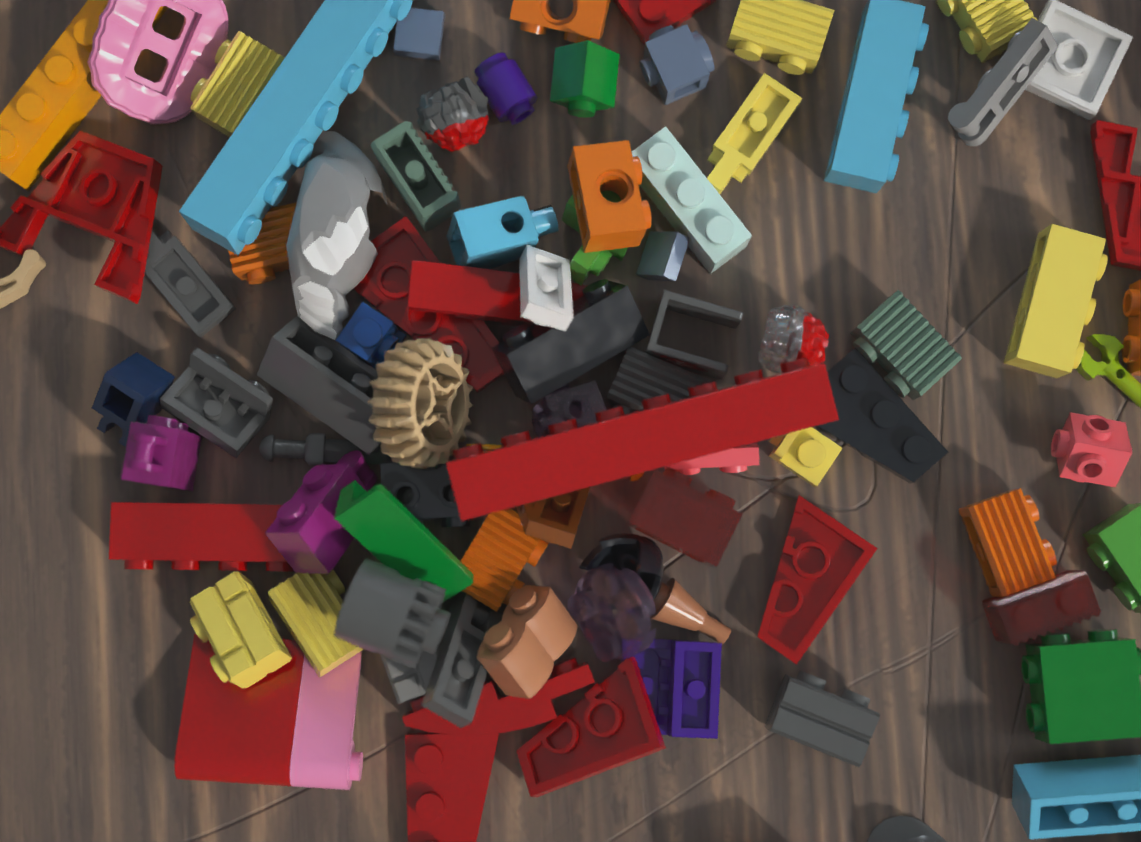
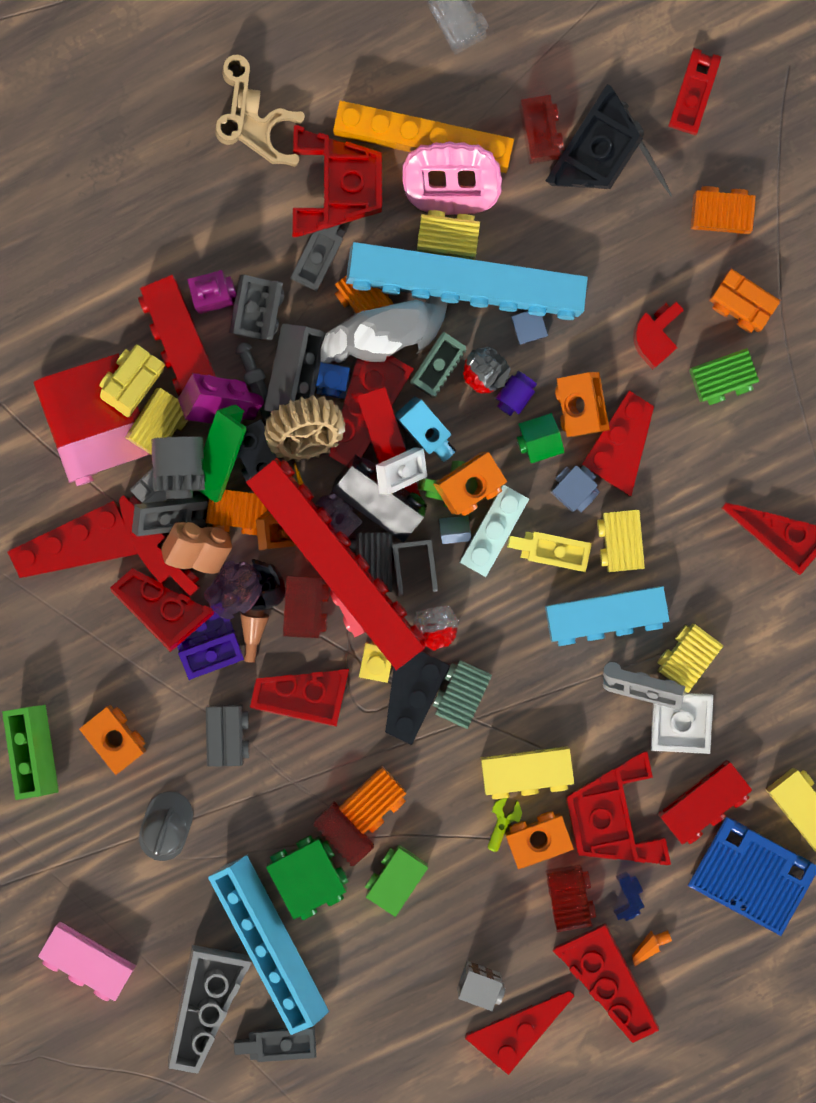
camera: 70 degrees right, 5 degrees up
(131, 394) = (239, 257): dark blue brick -> none
(1091, 449) = (447, 825): coral brick -> none

